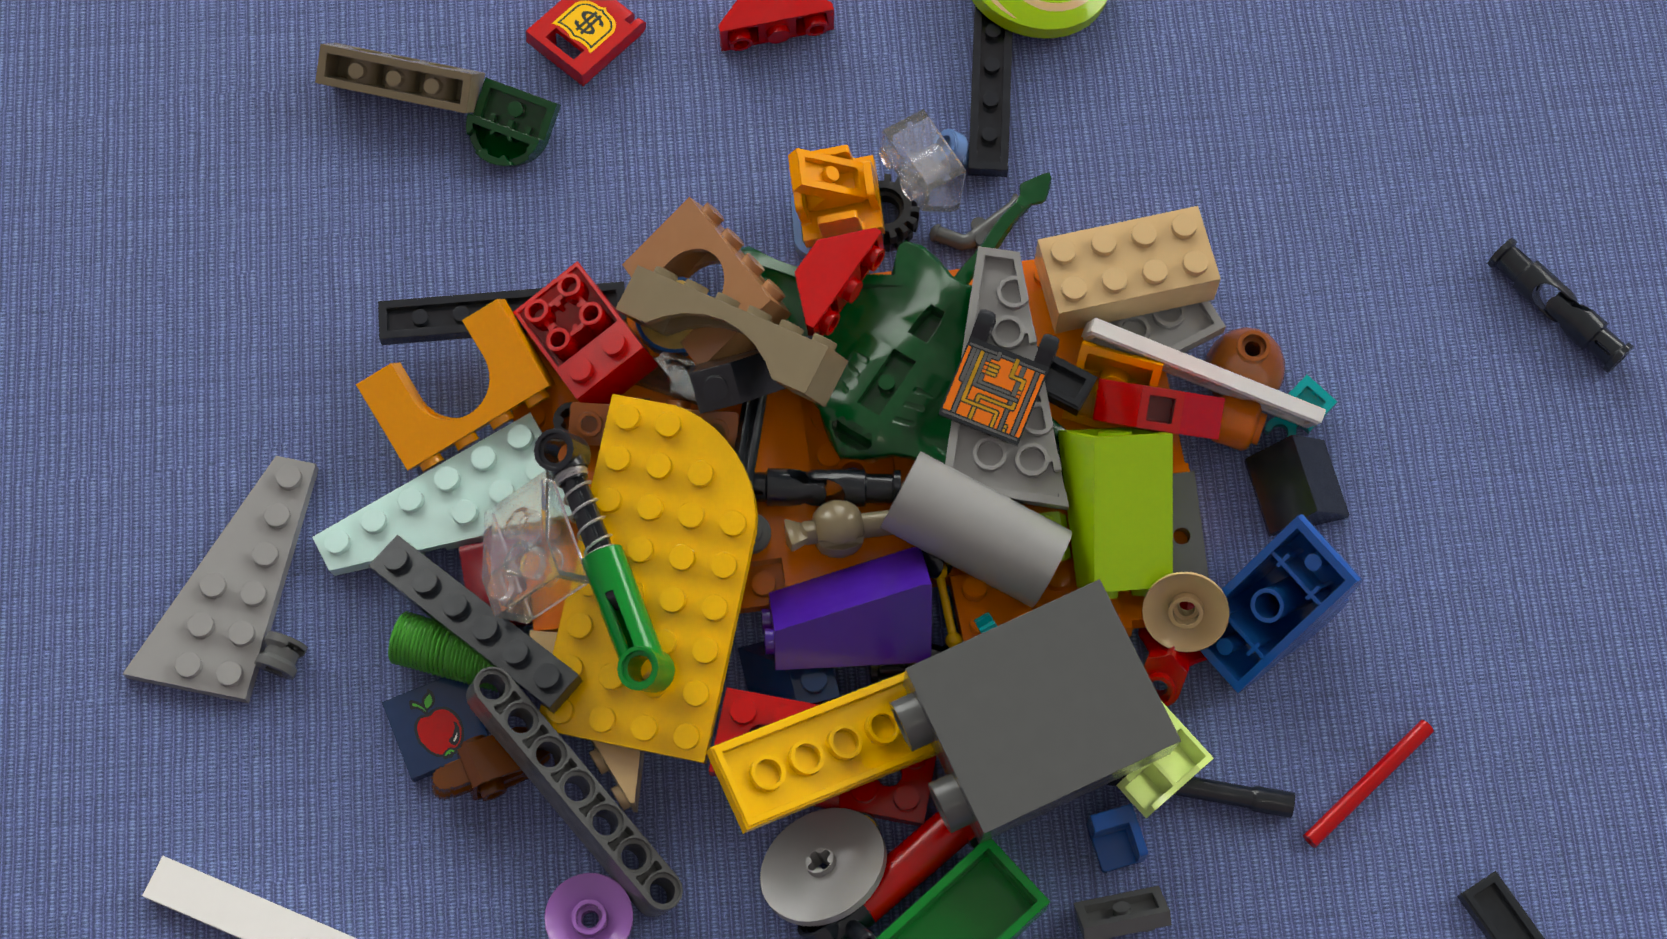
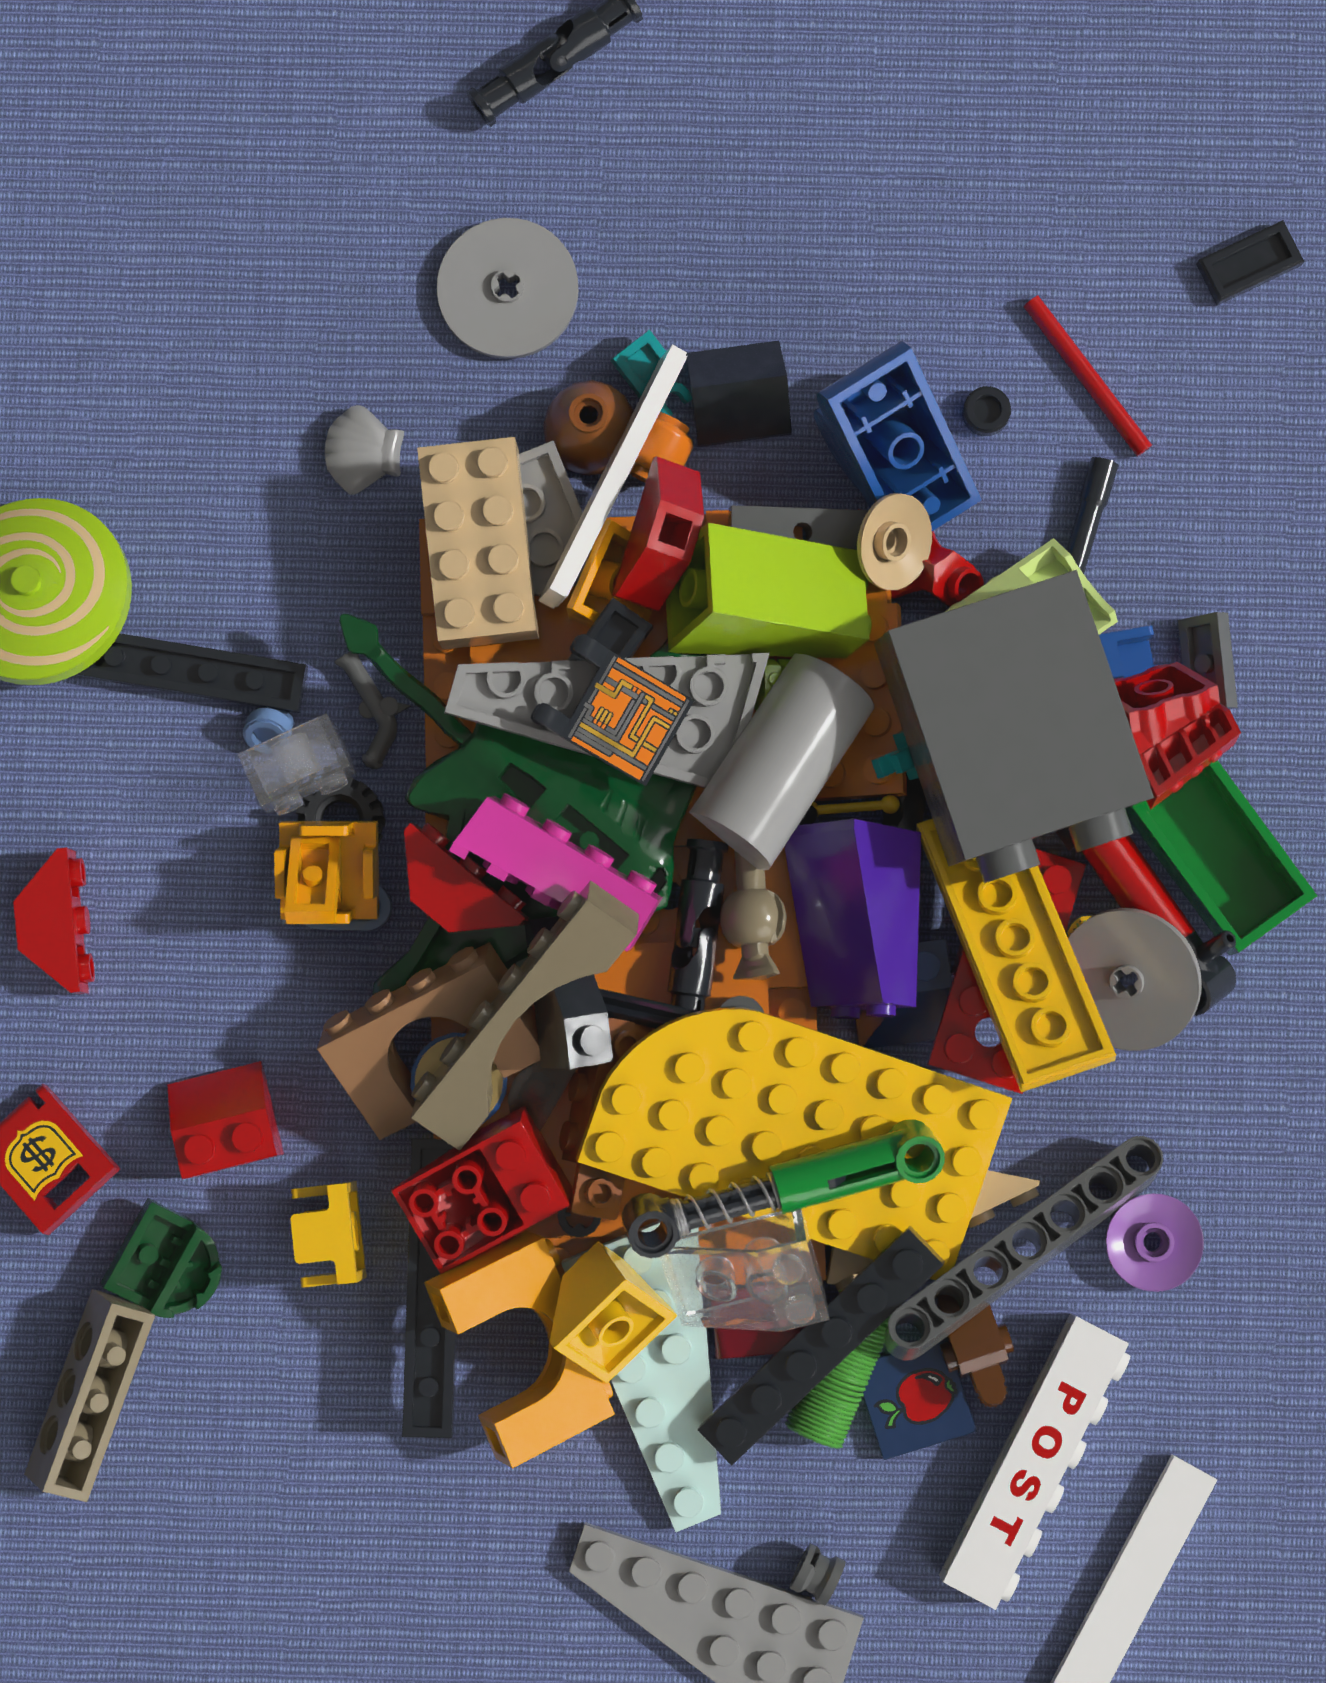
camera: 80 degrees left, 15 degrees up
(388, 830) = (1034, 1461): none -> white brick
(487, 442) = (606, 1313): none -> yellow slope
(541, 238) = (330, 1234): none -> yellow panel
(626, 153) = (223, 1120): none -> red slope
(867, 337) = (546, 860): none -> dark pink wedge
(1053, 858) = (1175, 724): none -> red slope
(1192, 188) = (361, 450): none -> light grey animal
(1320, 697) = (986, 411): none -> black tile
(1361, 319) = (503, 324): none -> light grey piece

